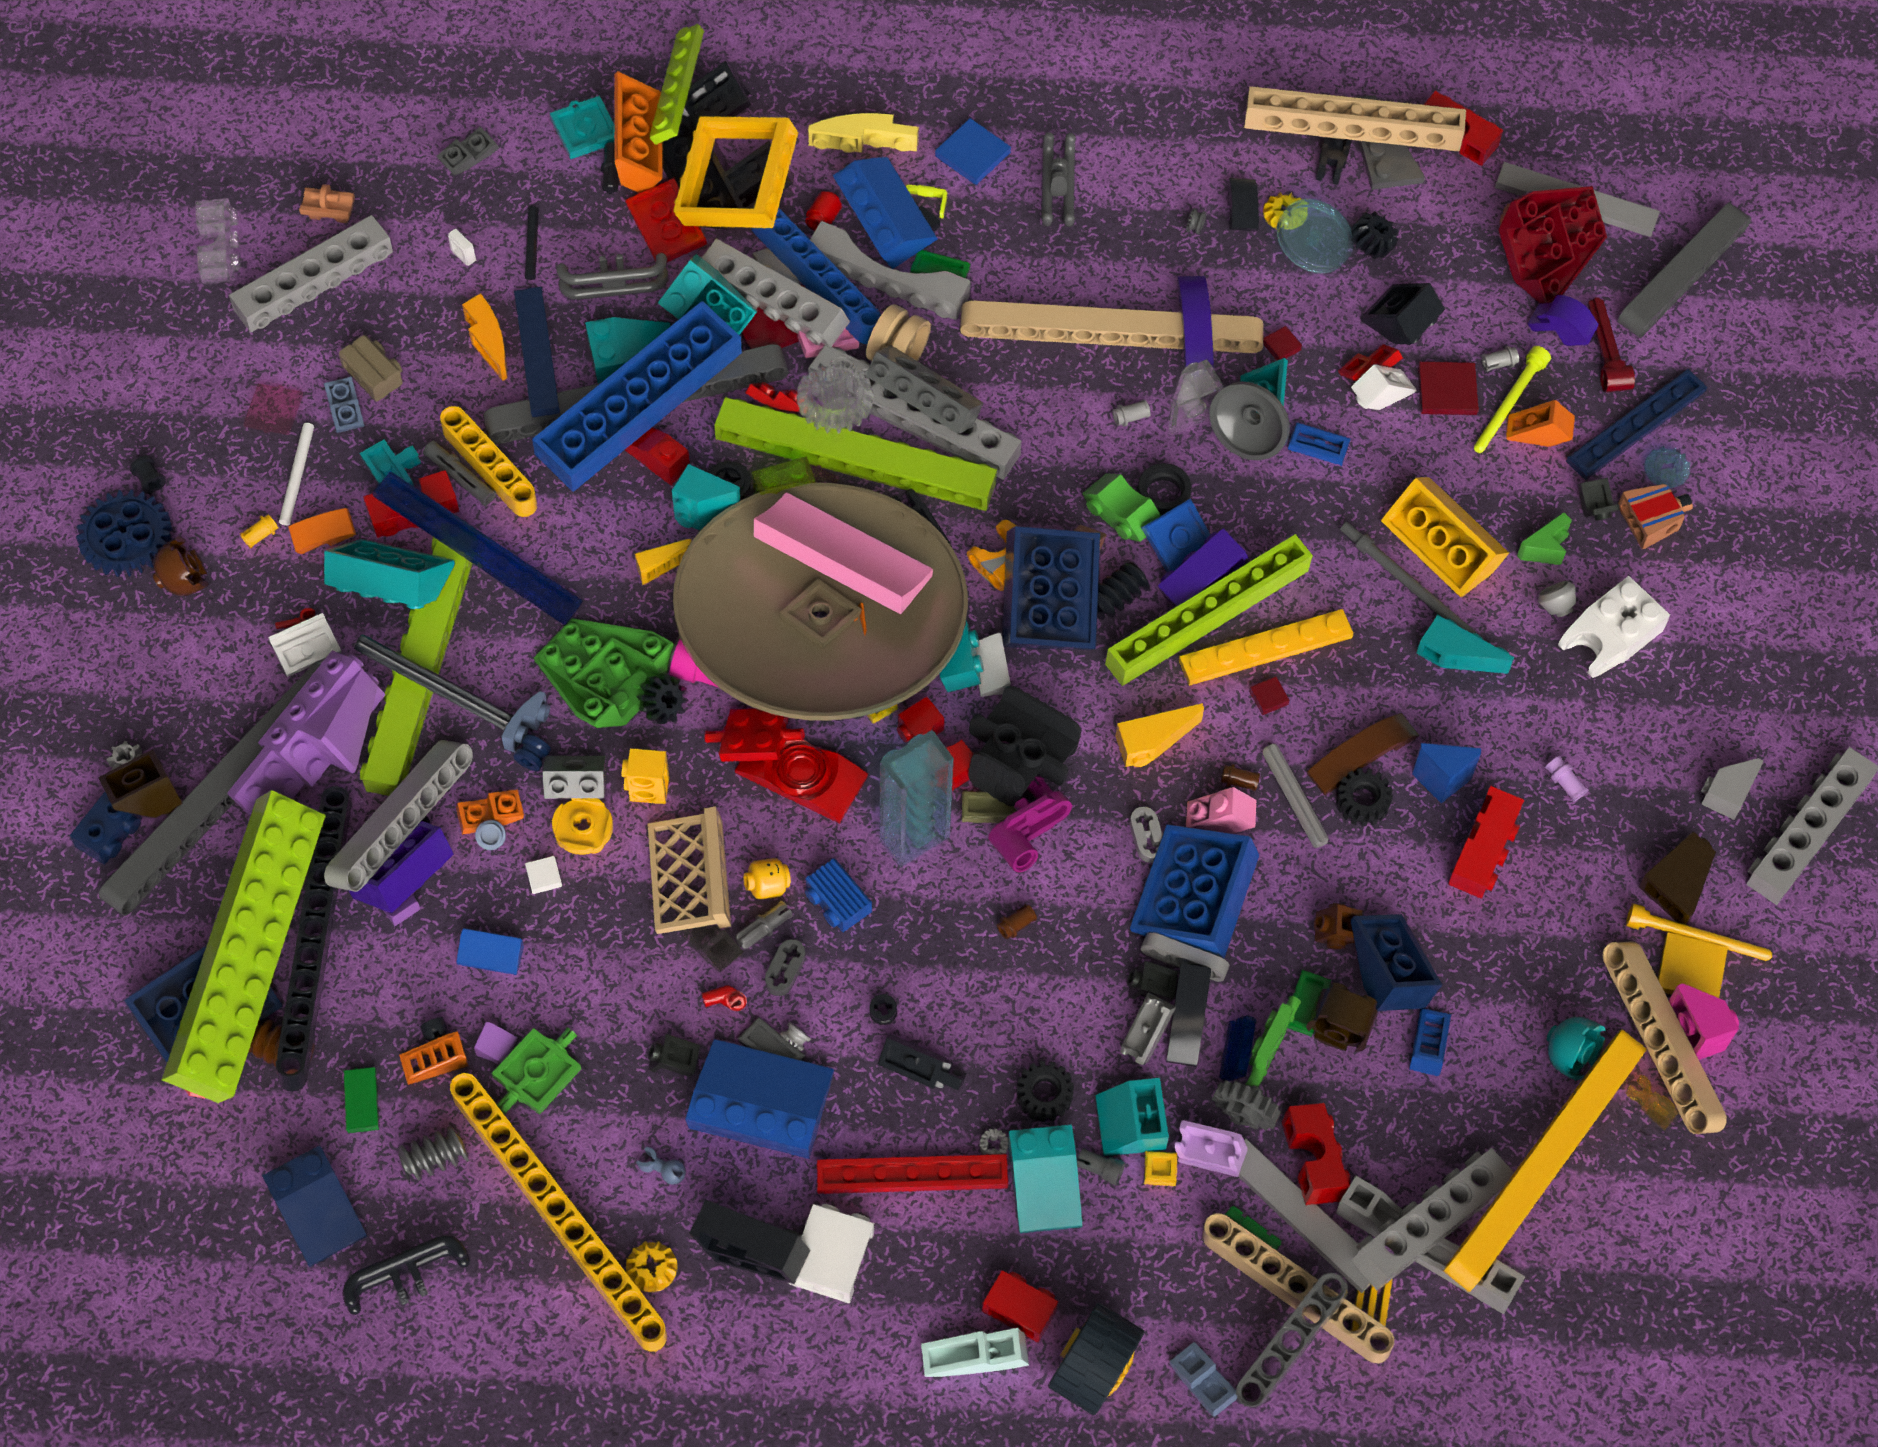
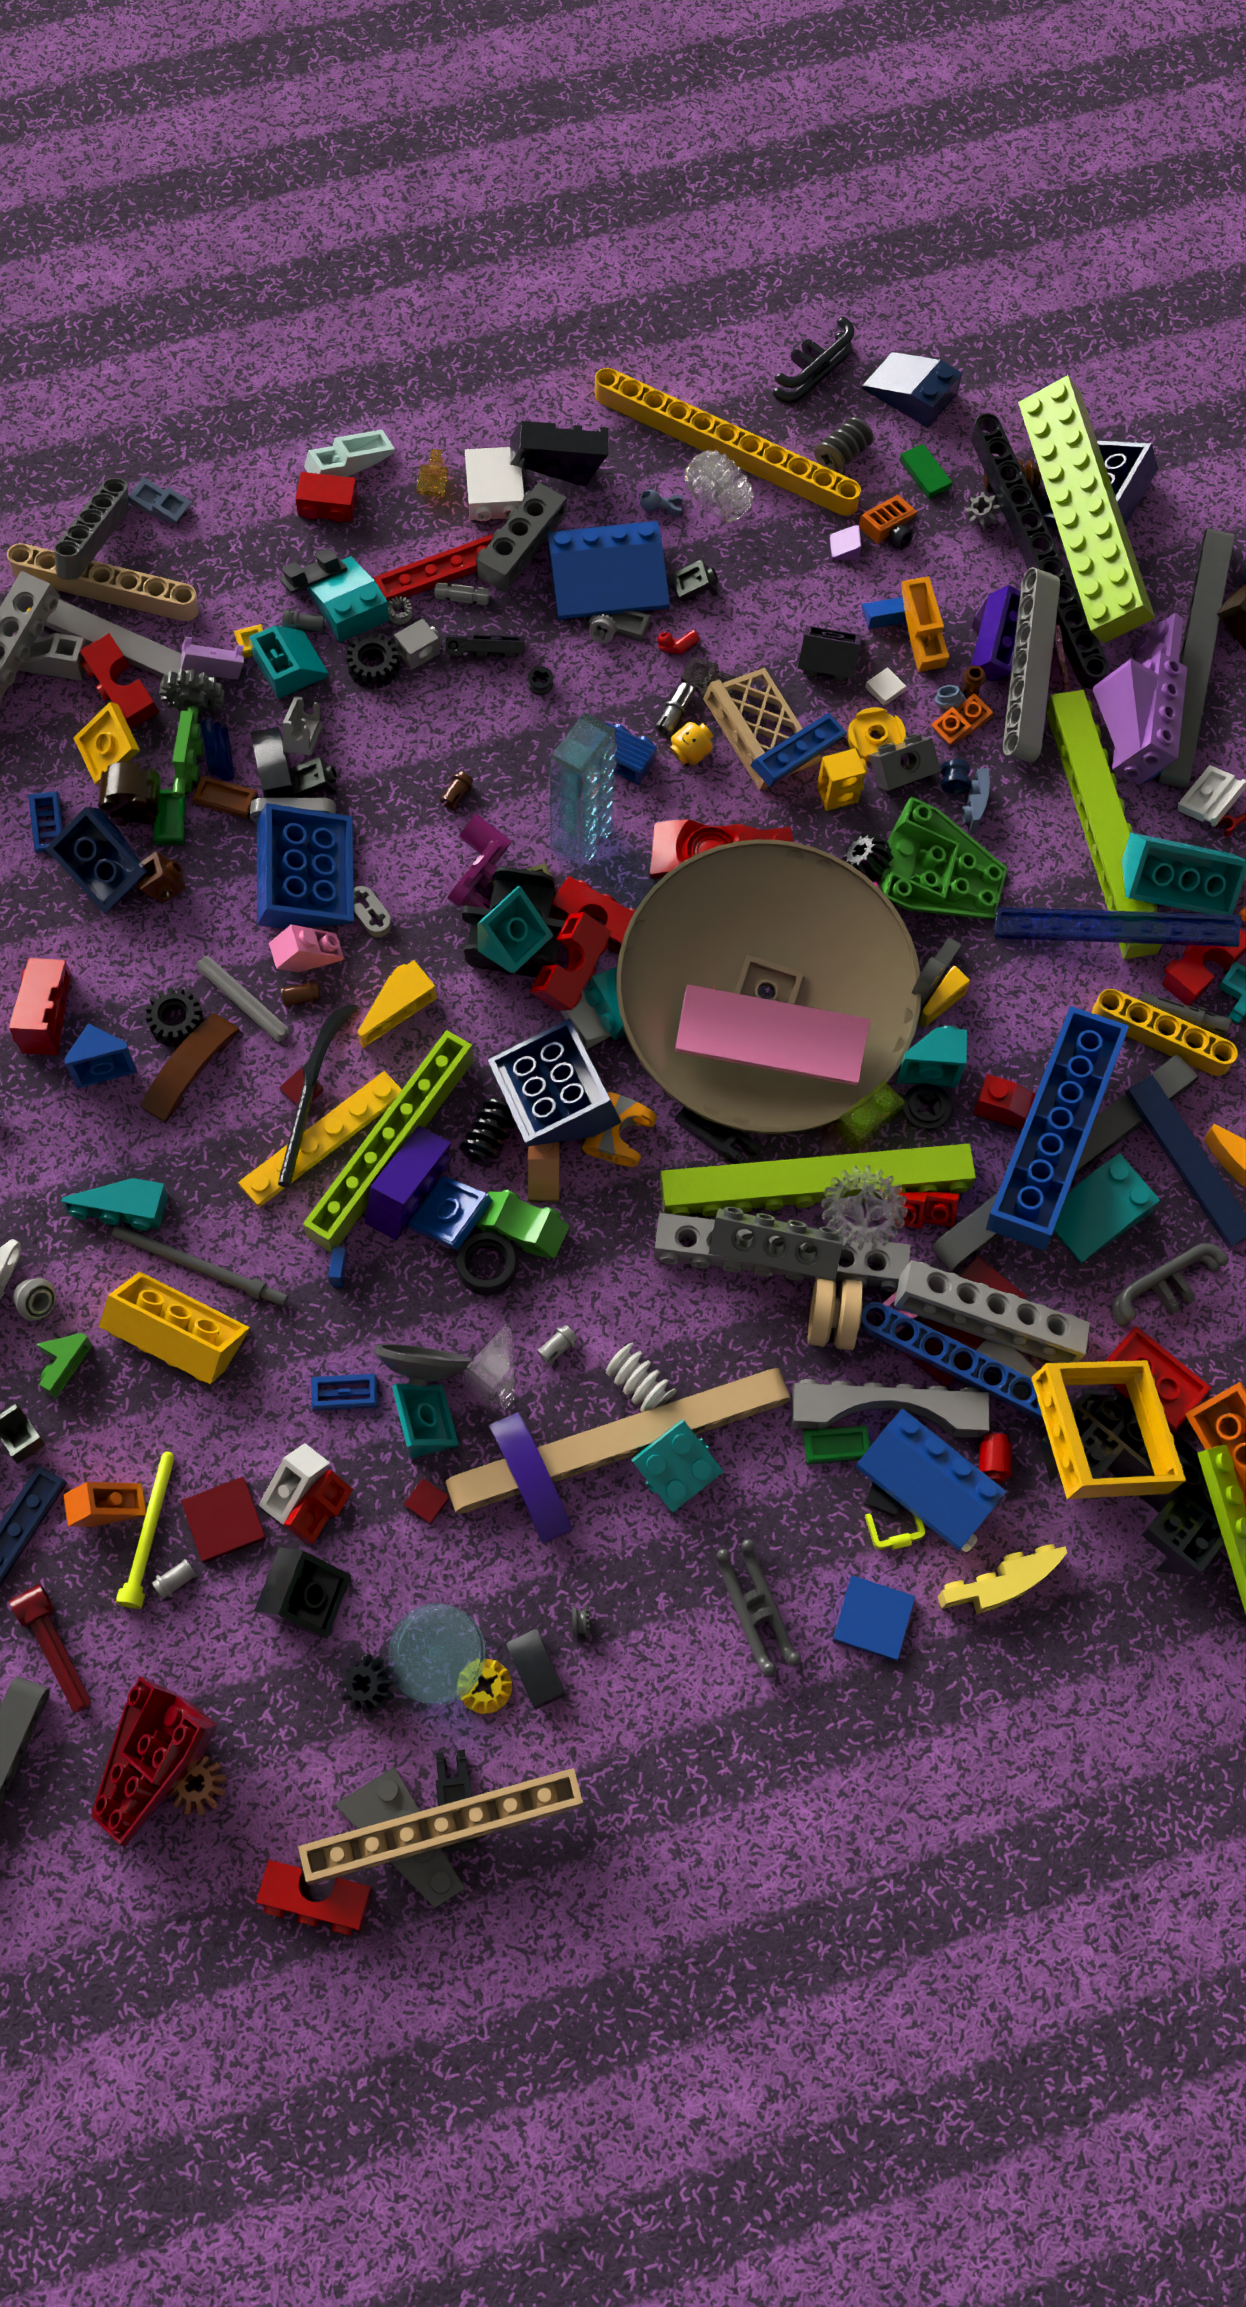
camera: 155 degrees right, 5 degrees up
(338, 1011) = (990, 510): none -> light grey gear
(363, 814) = (1062, 658): none -> clear pink piece
(432, 681) = (1075, 787): black axle -> none
(459, 835) = (973, 679): none -> reddish brown pin
(474, 906) = (924, 624): none -> light orange slope
(536, 1071) = (800, 533): bright green plate -> none
(578, 926) = (829, 653): none -> black slope
(598, 1141) = (719, 485): none -> clear gear
(663, 579) = (935, 969): none -> dark grey beam
(664, 1273) = (631, 444): yellow gear -> none
(668, 827) = (798, 749): none -> blue tile
(704, 283) = (1055, 1278): teal slope -> none
(779, 964) = (645, 684): dark grey beam -> none
(870, 1123) = (521, 536): none -> dark grey brick
(893, 1290) = (433, 477): none -> clear yellow plate
(919, 1138) = (462, 593): none -> light grey axle
(969, 694) = (585, 942): none -> red arch
(991, 1090) = (417, 643): none -> light grey brick
(1035, 708) = (512, 931): none -> teal slope
(1068, 1220) = (298, 578): none -> black piece
(1075, 288) = (677, 1465): none -> teal plate
(1076, 357) = (638, 1380): none -> white piece
(1096, 1359) = (246, 459): black wheel -> none
(1243, 1000) = (224, 796): none -> dark orange tile
(1253, 1227) = (156, 618): green axle -> none
(1257, 697) = (311, 1072): none -> black piece
(1293, 527) = (338, 1266): none -> blue tile
(1349, 1088) = (106, 741): none -> yellow plate
(1568, 318) = (112, 1651): dark purple brick -> none
(1612, 209) = (140, 1856): light grey tile -> none

